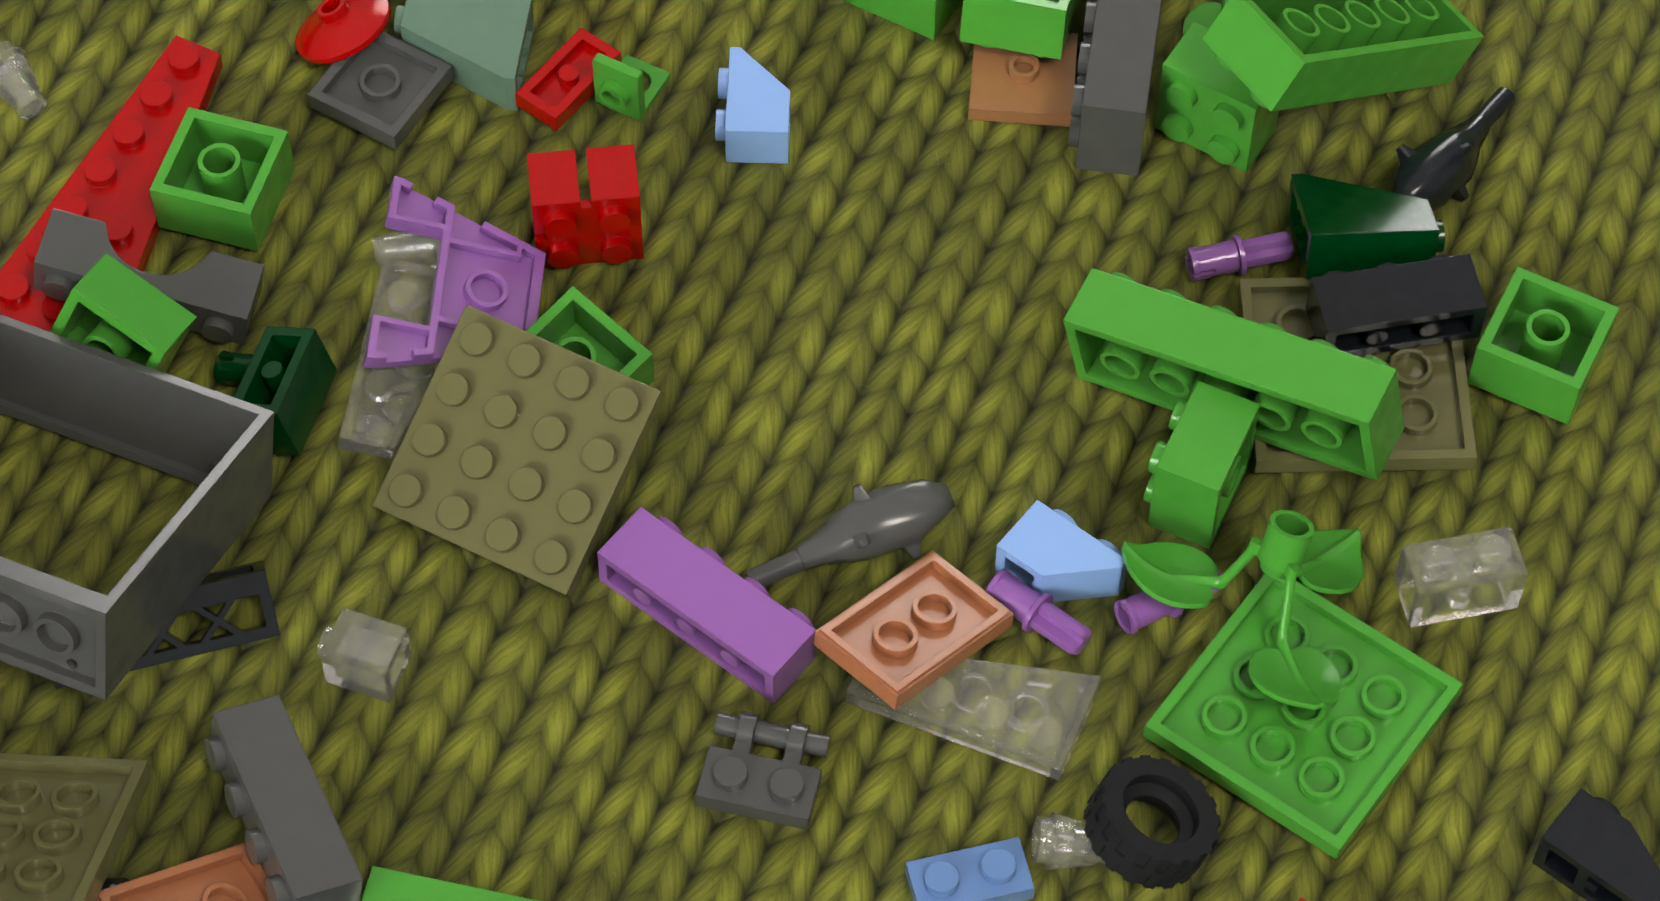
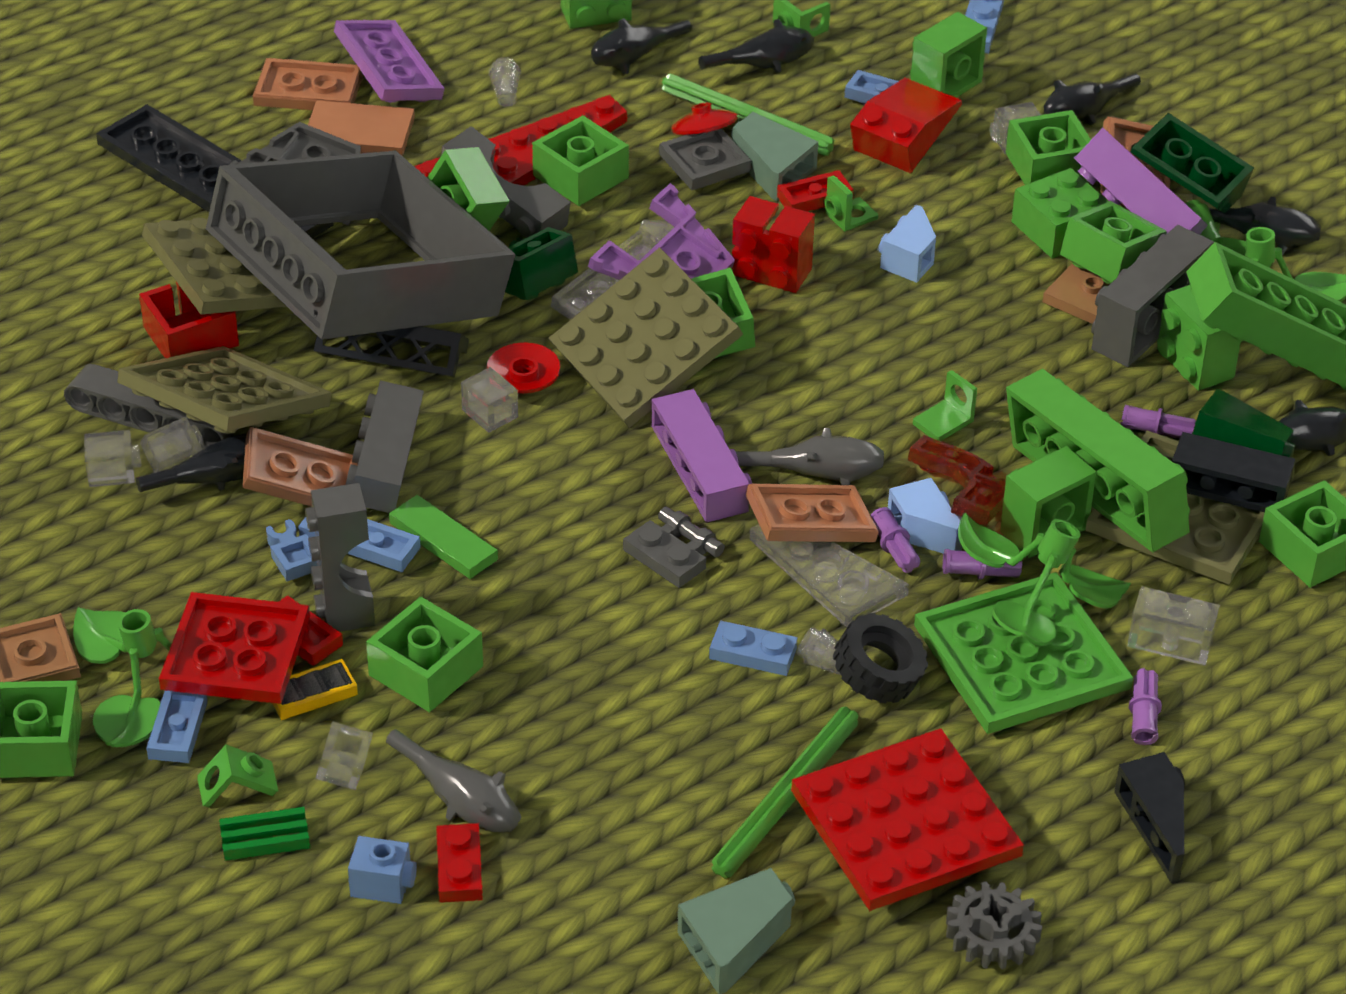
camera: 30 degrees right, 15 degrees down
(376, 557) = (526, 366): none -> red dish
(976, 370) = (951, 413): none -> bright green bracket
(1108, 480) = (982, 491): none -> clear red plate
(1498, 717) = (1145, 707): none -> medium lavender axle

